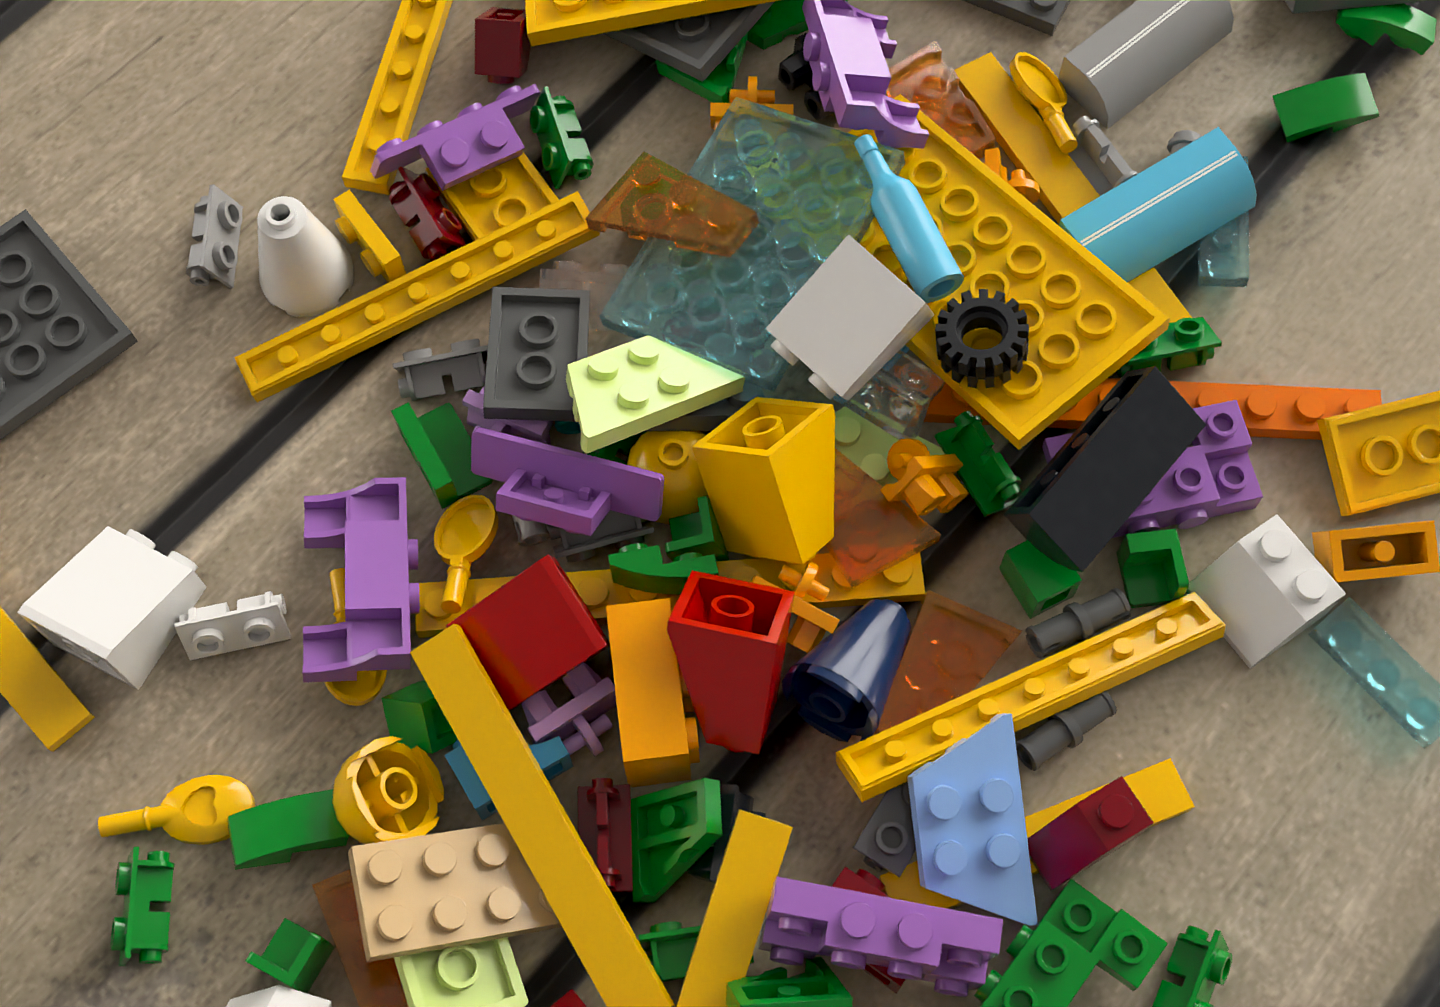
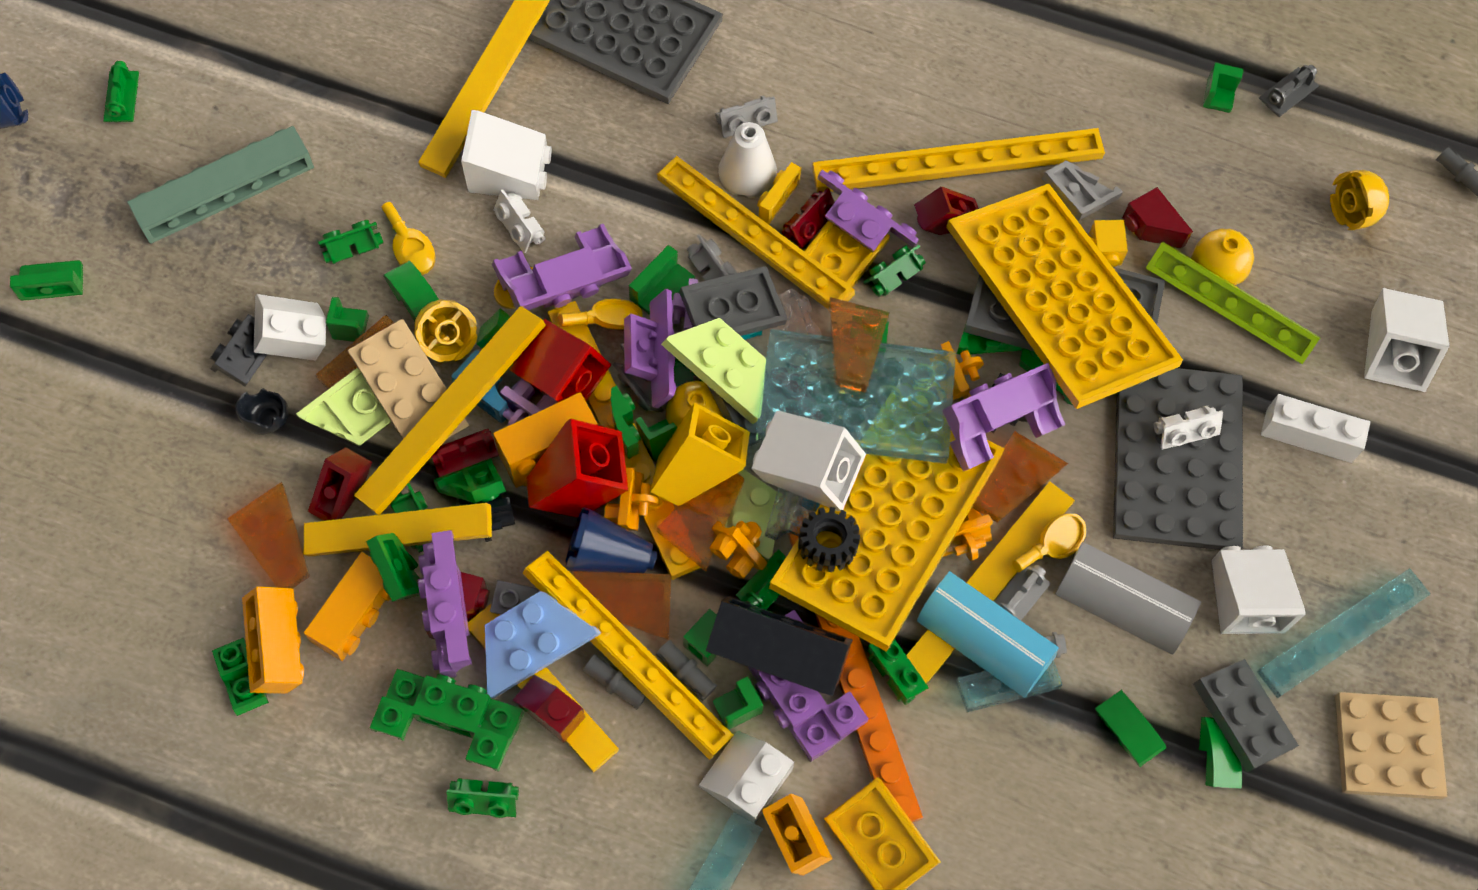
camera: 65 degrees right, 0 degrees up
(909, 228) = (891, 474): medium azure piece -> none

